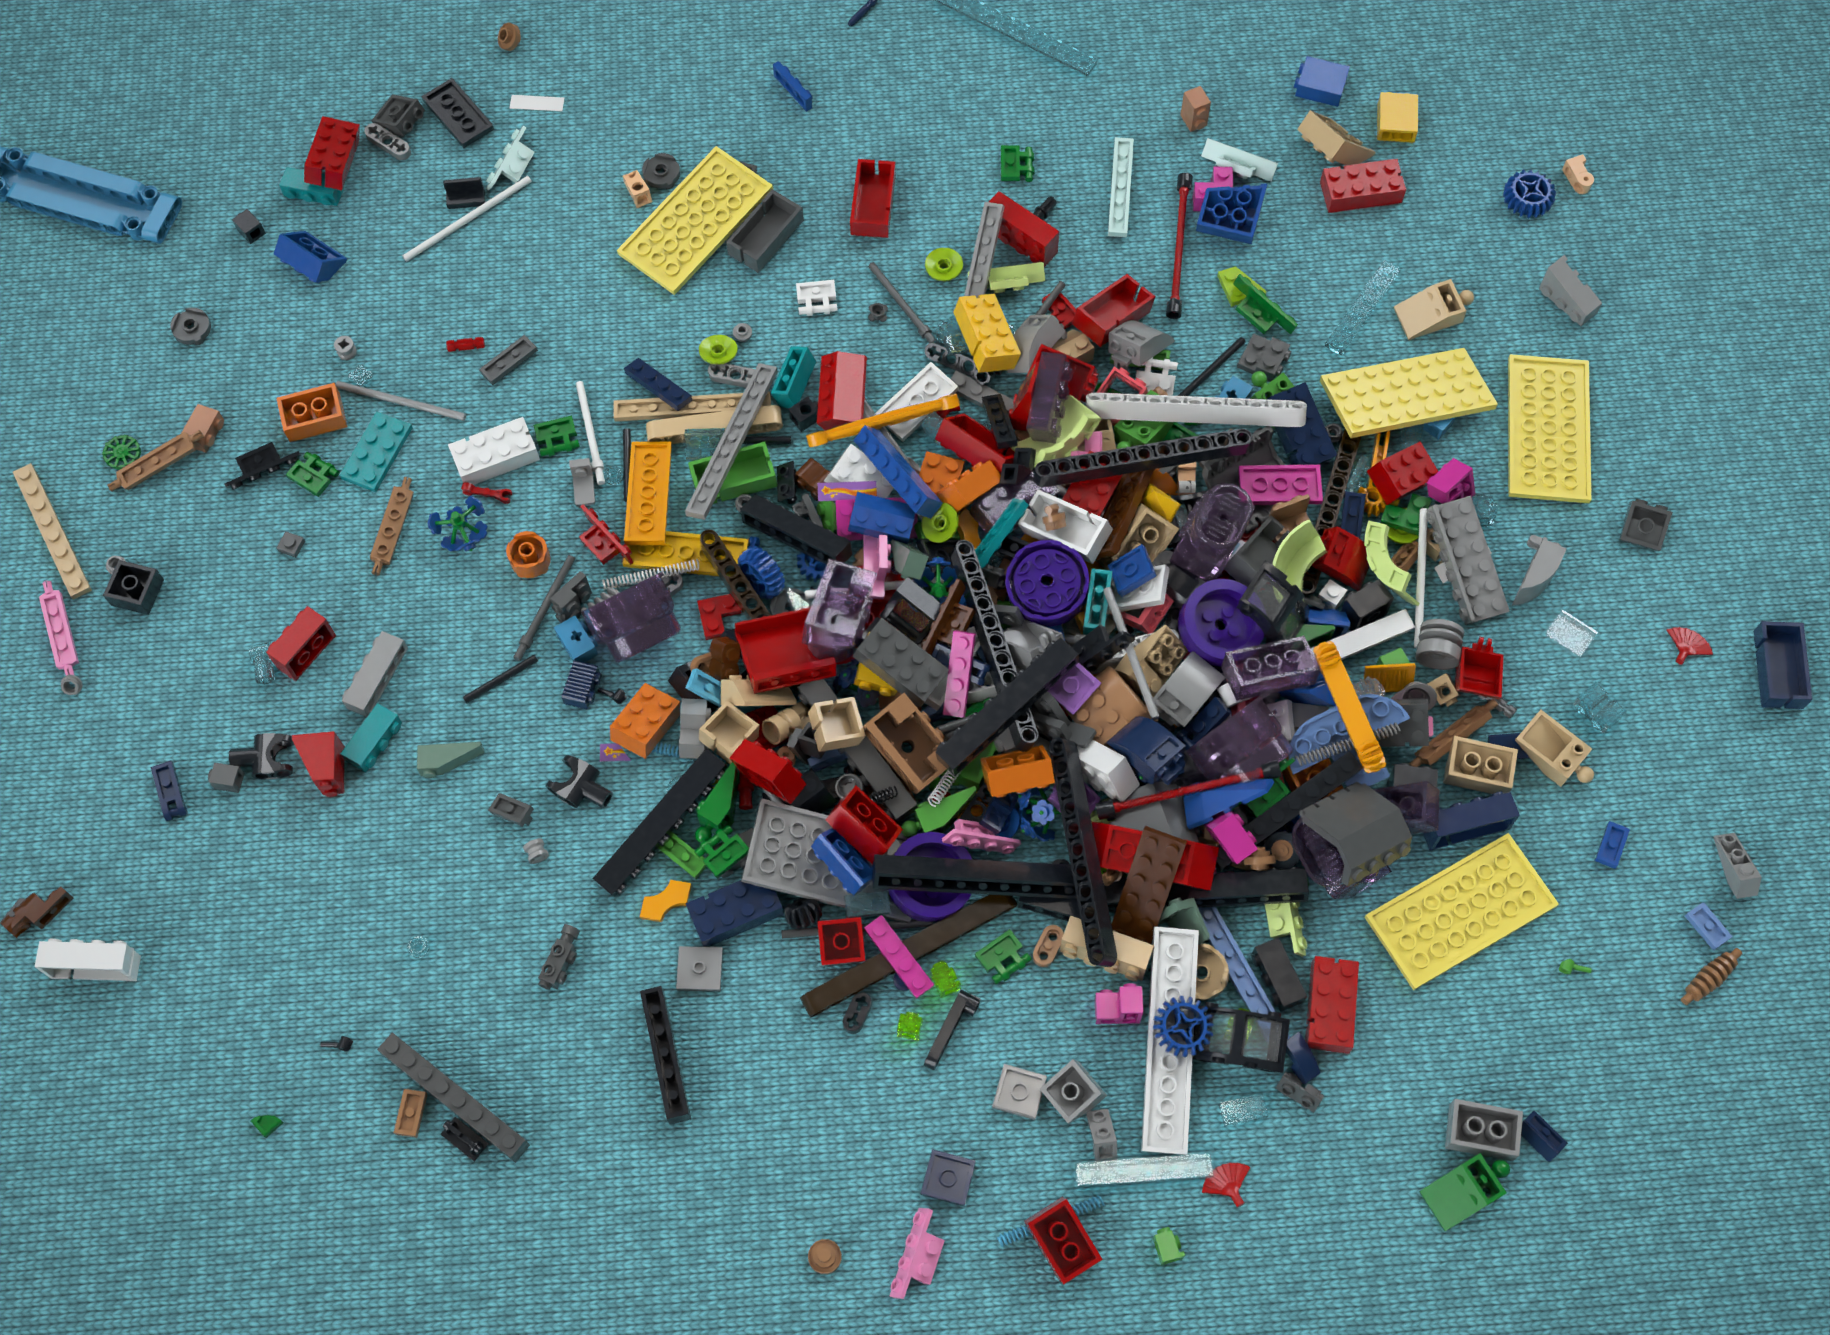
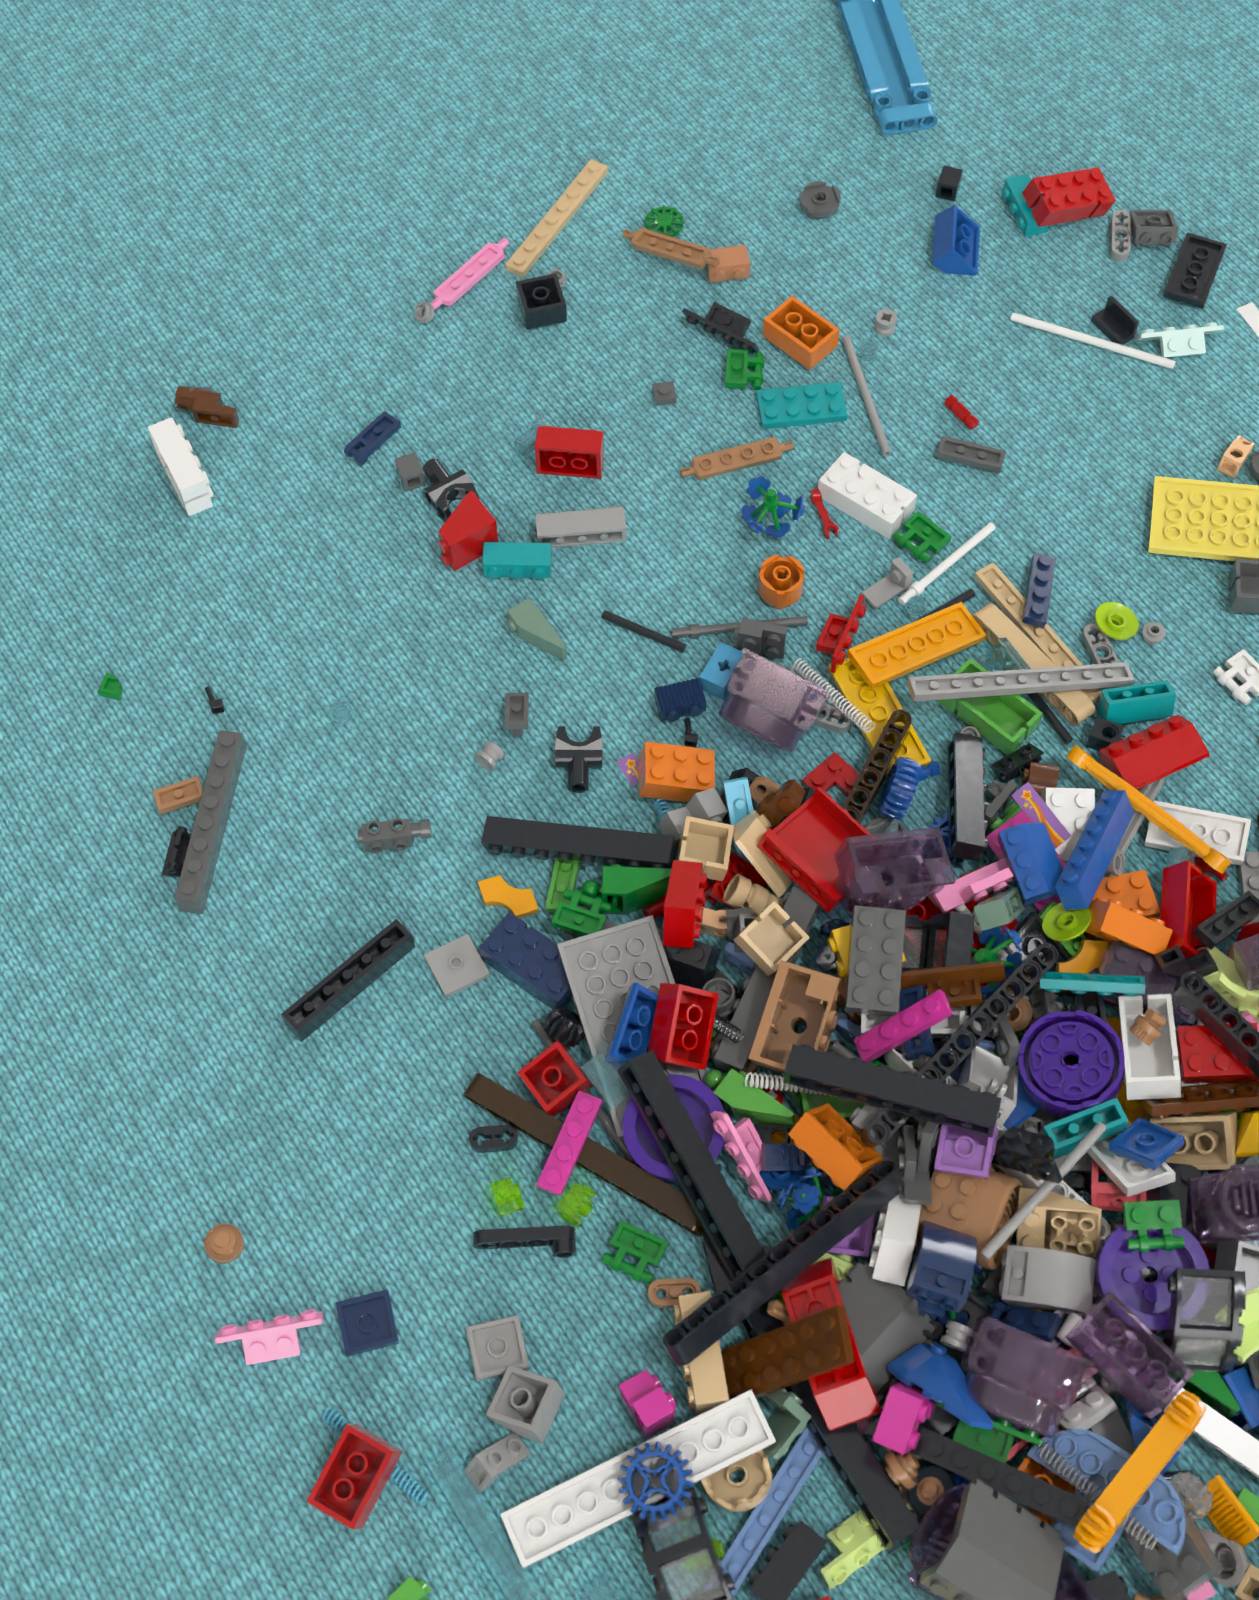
camera: 60 degrees right, 5 degrees down
(1108, 808) = (855, 1268): red hose -> none
(1190, 595) = (1153, 1216): none -> green plate
(1192, 771) = (956, 1336): none -> light grey wheel

